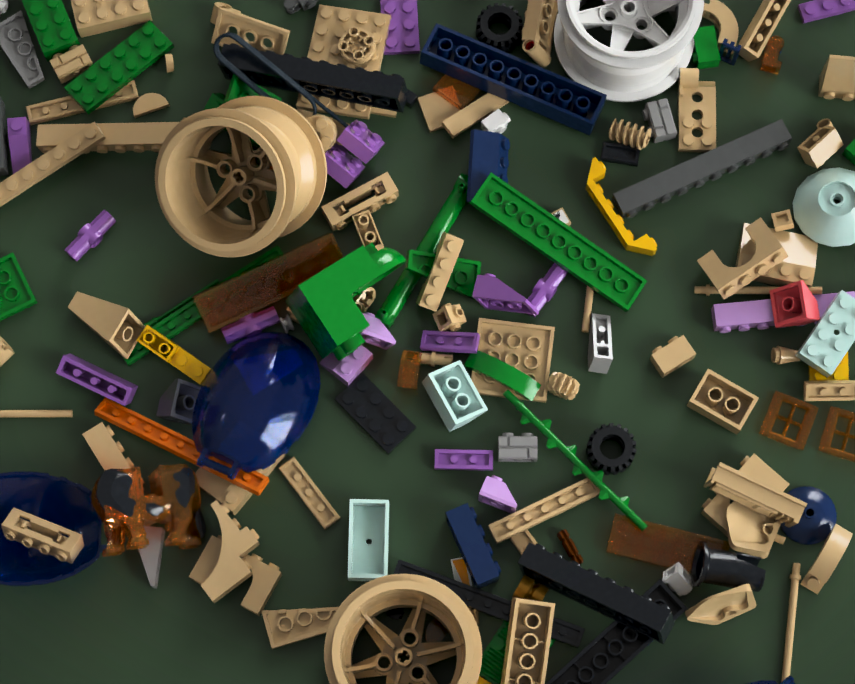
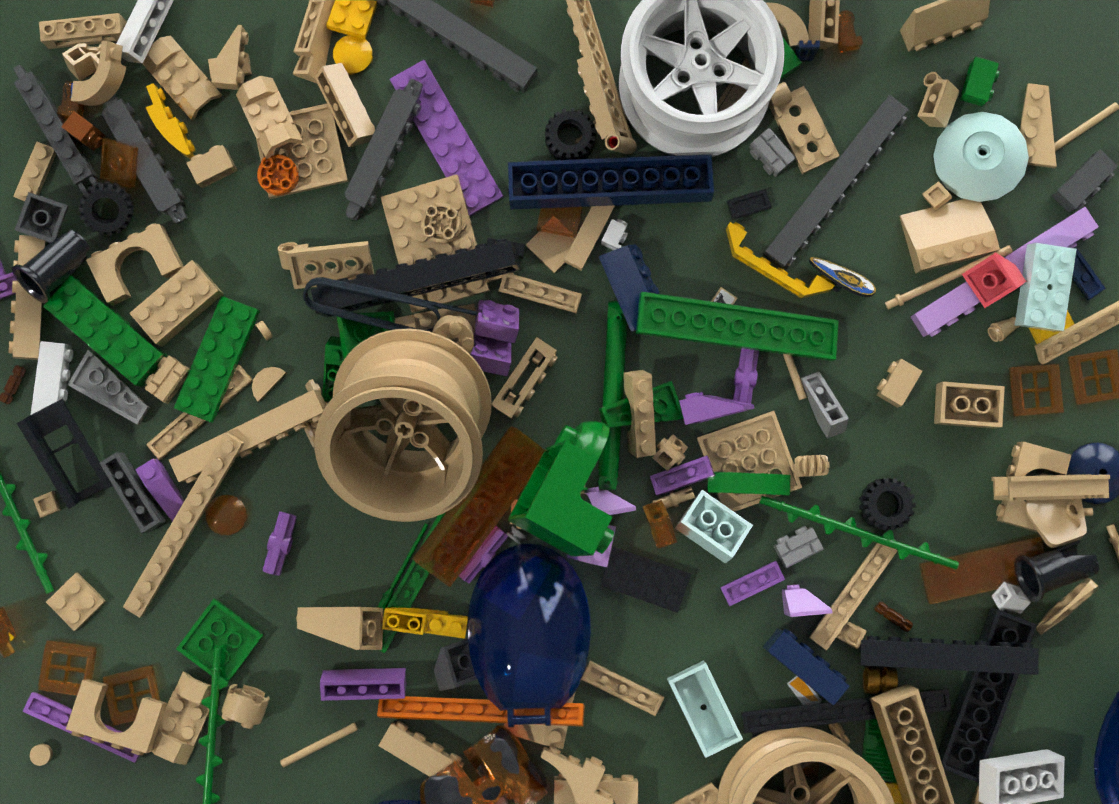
camera: 25 degrees left, 10 degrees up
(59, 192) = (226, 515): none -> clear orange dish
(367, 229) = (551, 409): tan slope -> none
(409, 140) = (540, 292): none -> tan tile
(629, 135) = (751, 182): tan piece -> none
(669, 248) = (844, 278): none -> shield
(731, 279) = (947, 239): tan arch -> none

